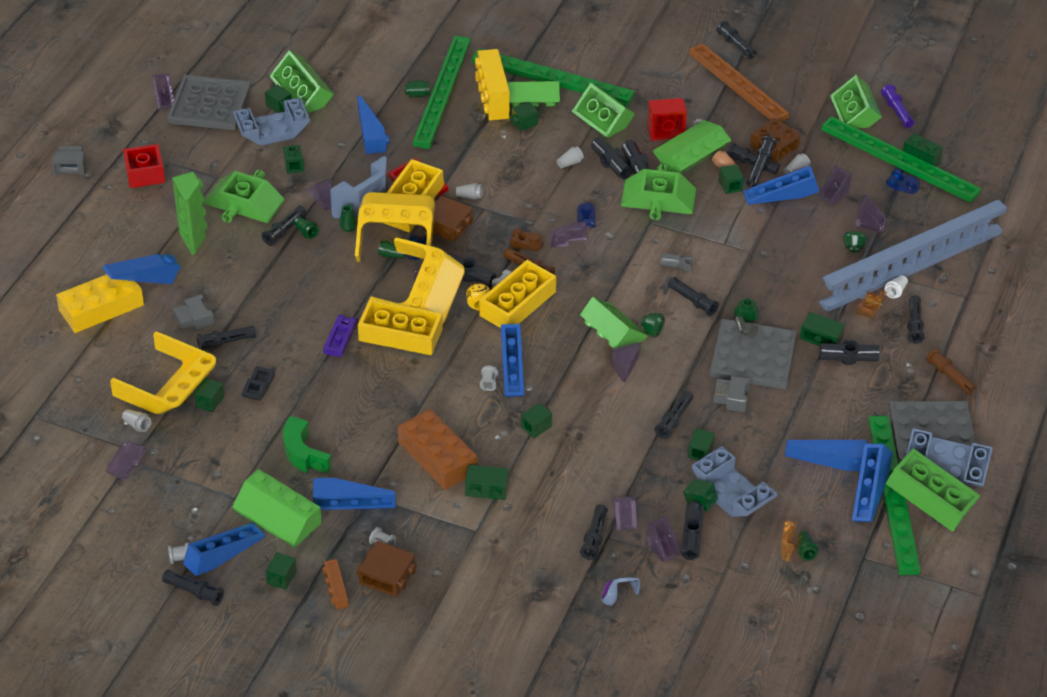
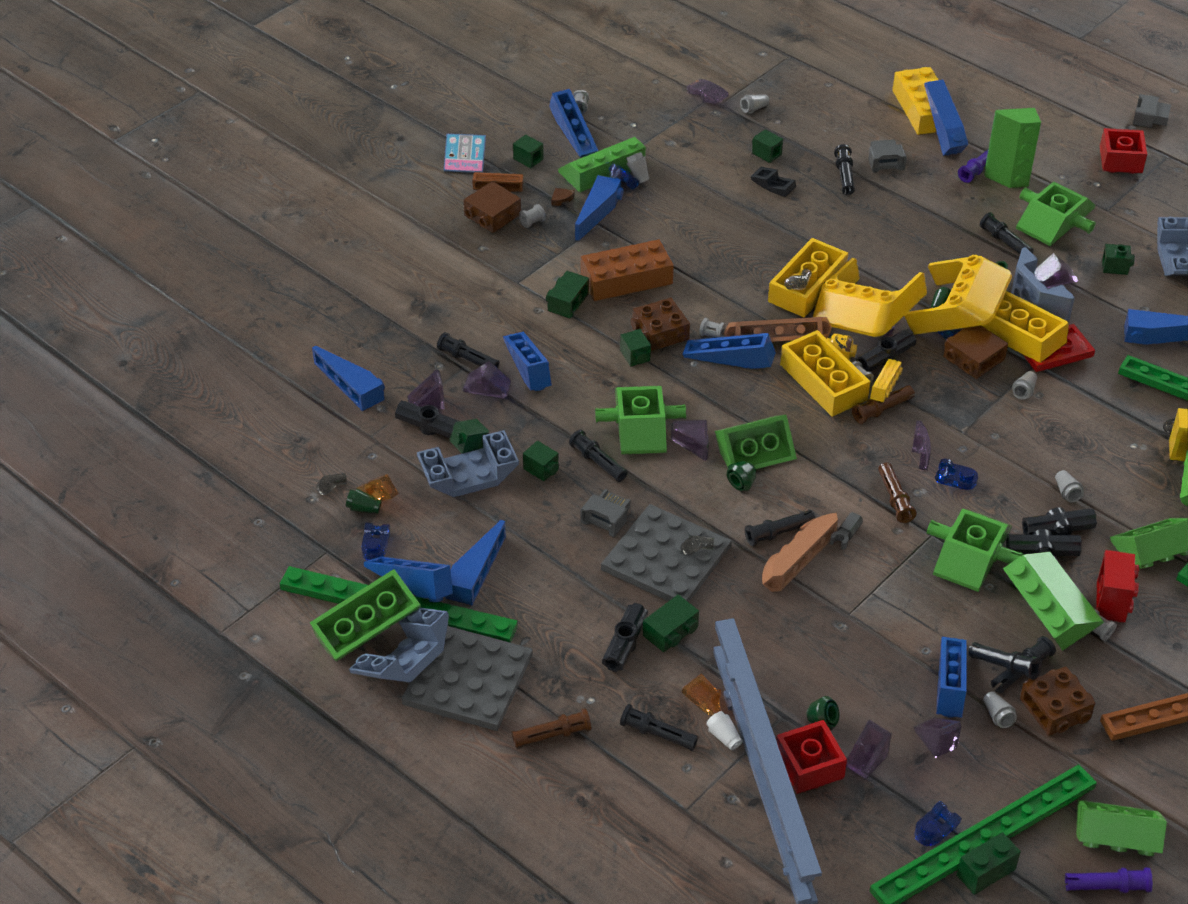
camera: 110 degrees right, 0 degrees up
(189, 255) = (974, 167): none -> dark purple pin
(193, 370) = (766, 113): yellow windscreen -> none
(201, 589) = (533, 107): black pin -> none
(282, 473) = (638, 166): none -> light grey cone
(297, 453) = (673, 184): green arch -> none
(301, 482) = (620, 173): none -> clear blue plate
(304, 619) = (464, 153): none -> piece
(307, 228) = (997, 249): dark green cone -> none
(339, 530) = (562, 195): none -> reddish brown tile
(340, 335) = (804, 234): dark purple plate -> none
(426, 315) = (798, 282): none -> clear smoke arm
(472, 331) = (780, 329): none -> nougat brick
(497, 411) = (661, 323): none -> reddish brown brick
(508, 260) = (886, 380): none -> yellow piece
(524, 116) = (1159, 463): dark green brick -> none
(526, 240) = (928, 417): reddish brown plate -> none
(585, 486) = (529, 361): none -> blue slope
(609, 592) = (387, 344): sand blue piece -> none
(617, 396) = (641, 418): none -> bright green slope
(630, 239) = (898, 498): none -> reddish brown pin
(676, 592) = (351, 379): none -> blue slope
(712, 278) = (799, 552): none -> nougat brick
(722, 159) = (1024, 633): nougat cone -> none
(731, 179) = (986, 626): dark green brick -> none
(747, 309) = (737, 568): dark green cone -> none
(846, 527) = (375, 547): none -> clear blue plate
(893, 231) = (811, 756): none -> red brick

